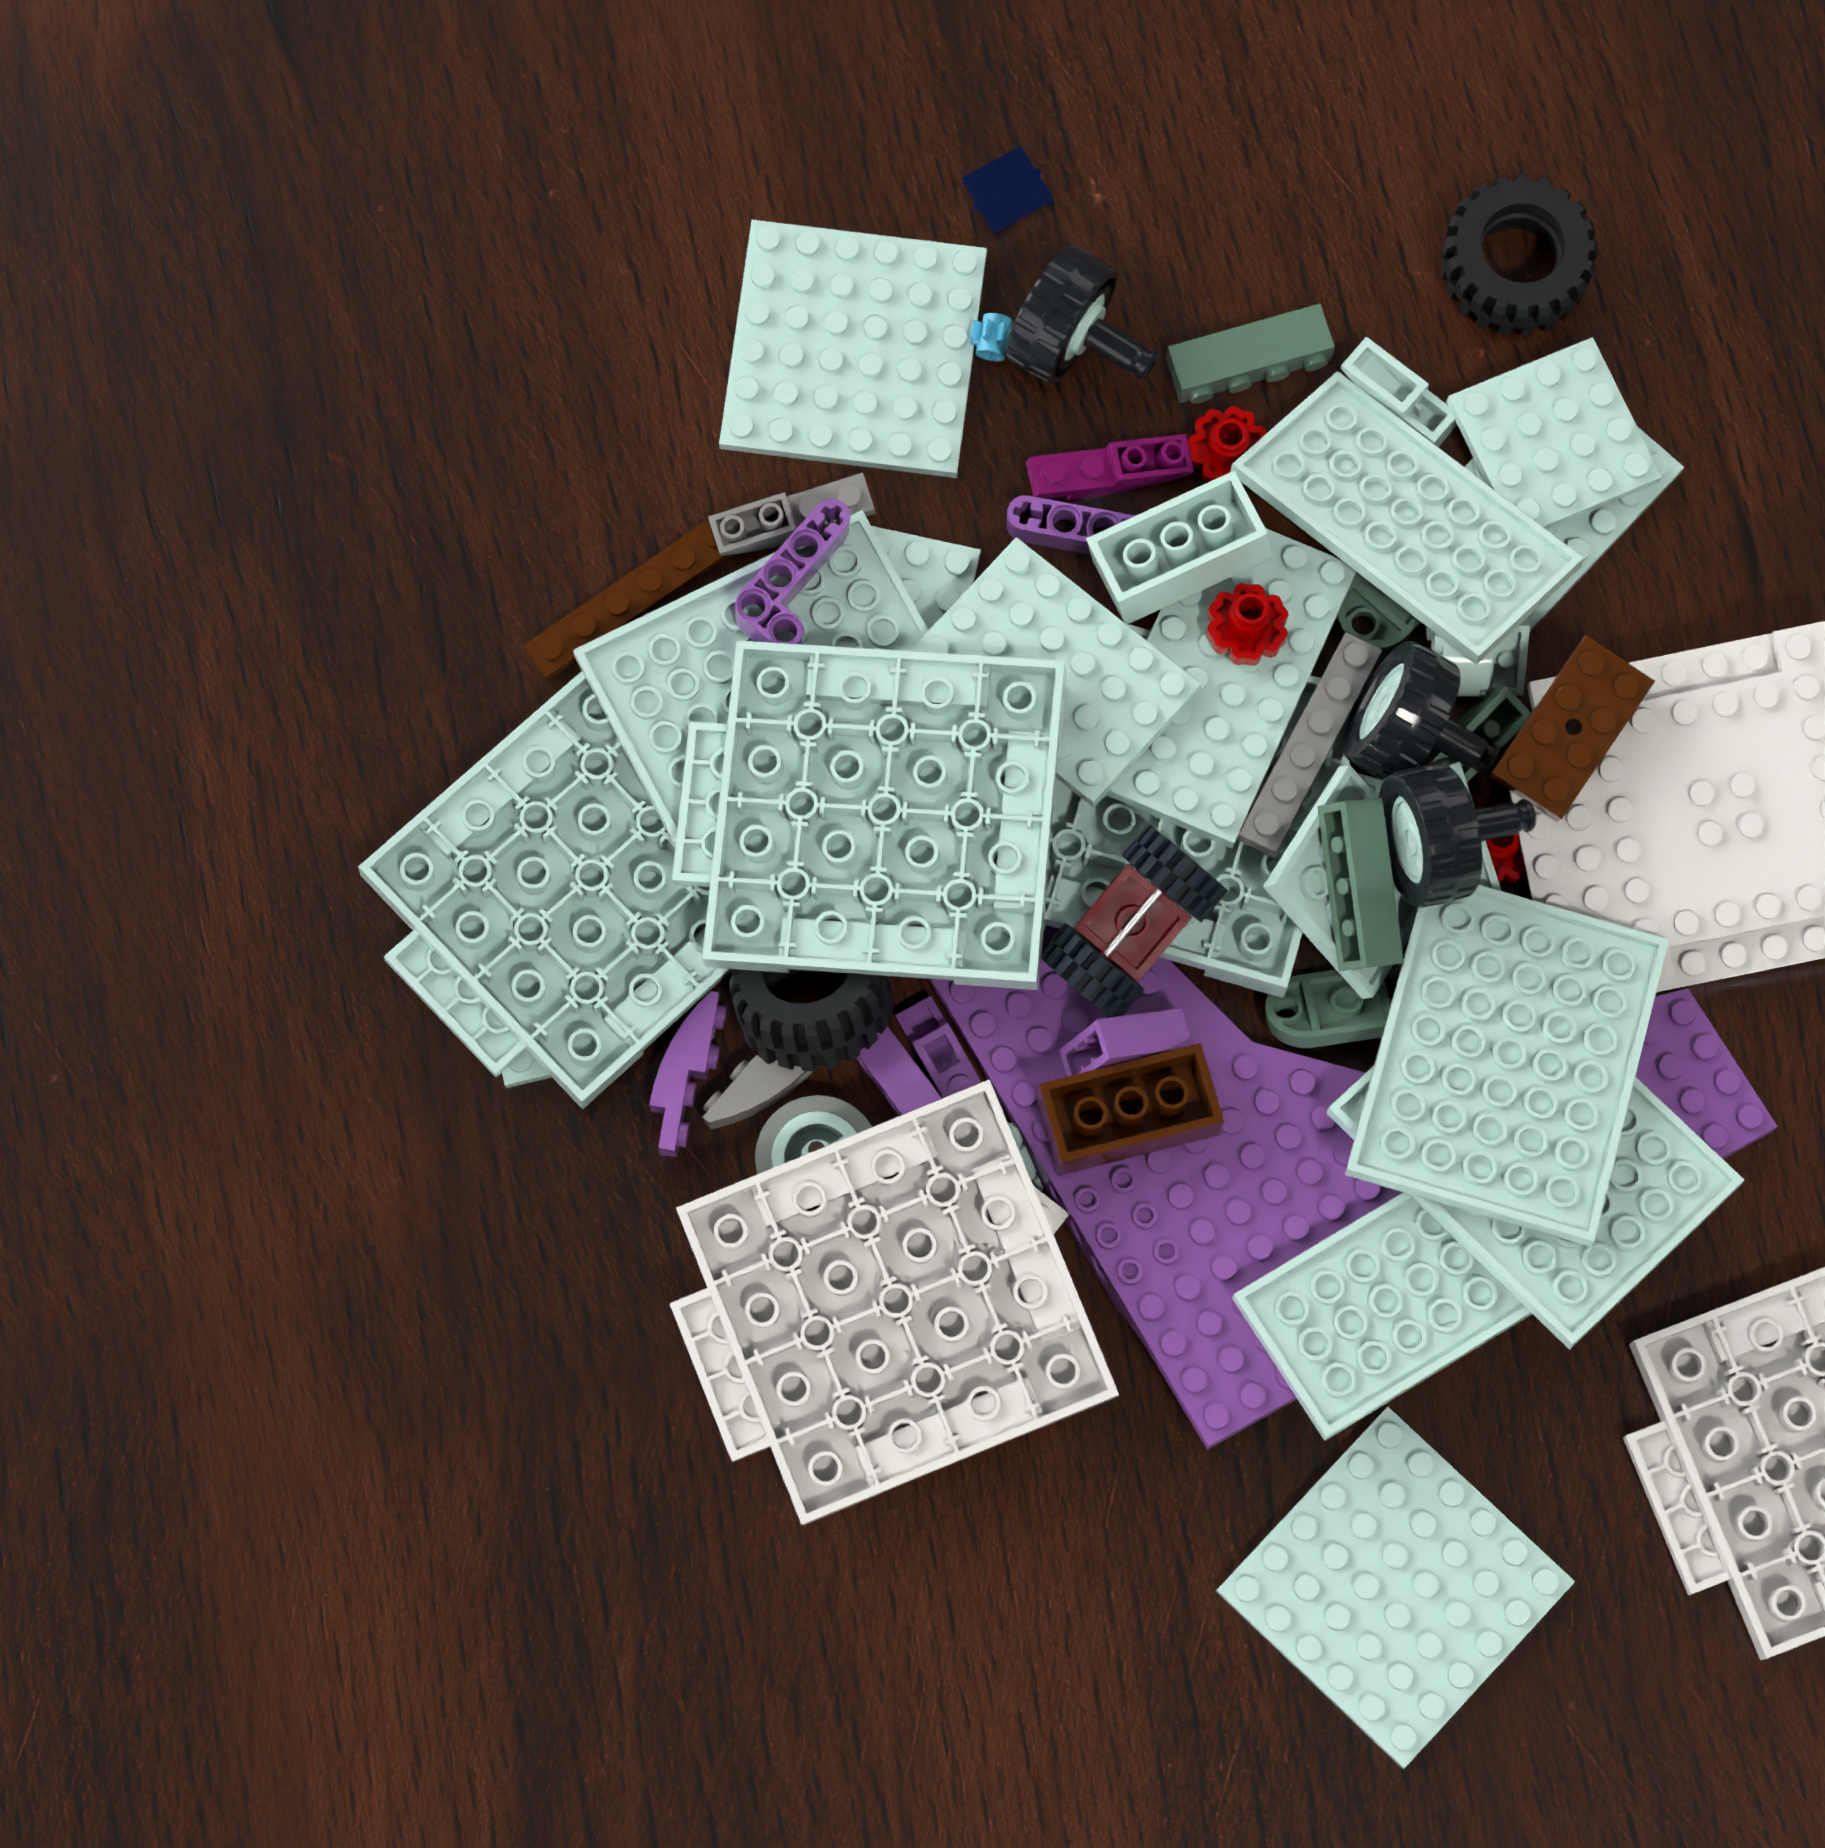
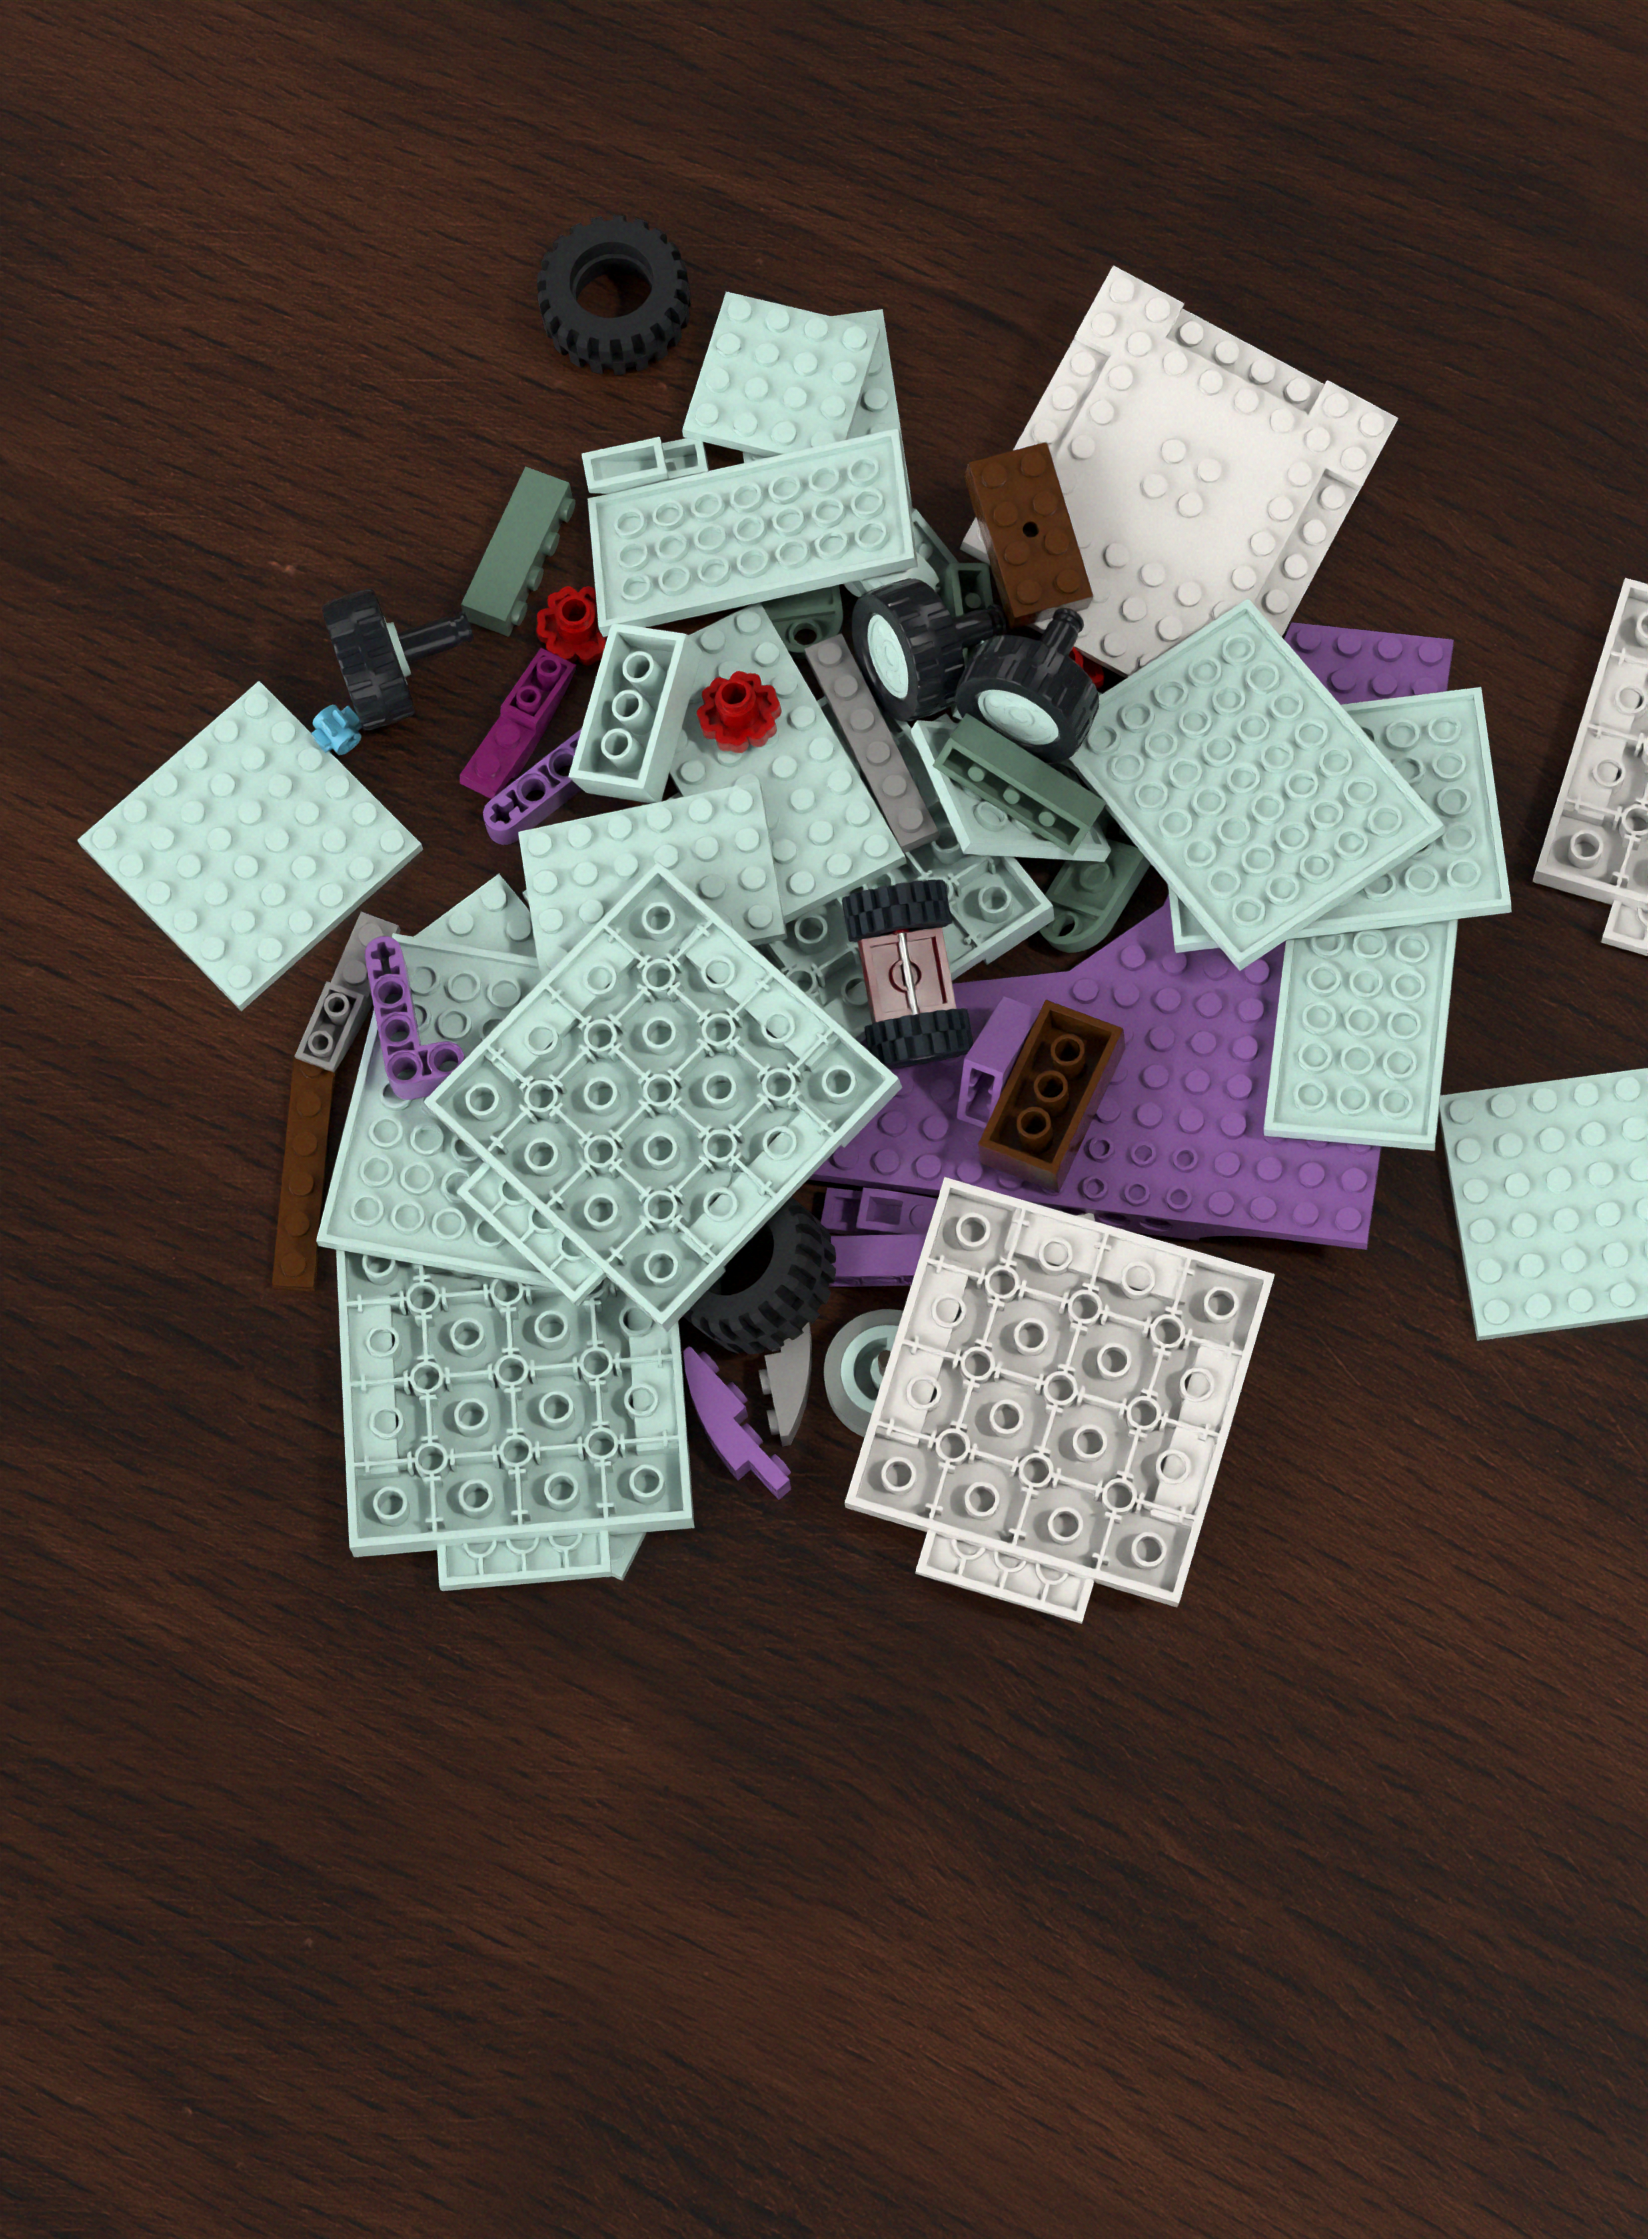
camera: 45 degrees left, 5 degrees down
(1007, 189) = (223, 630): clear blue piece -> none

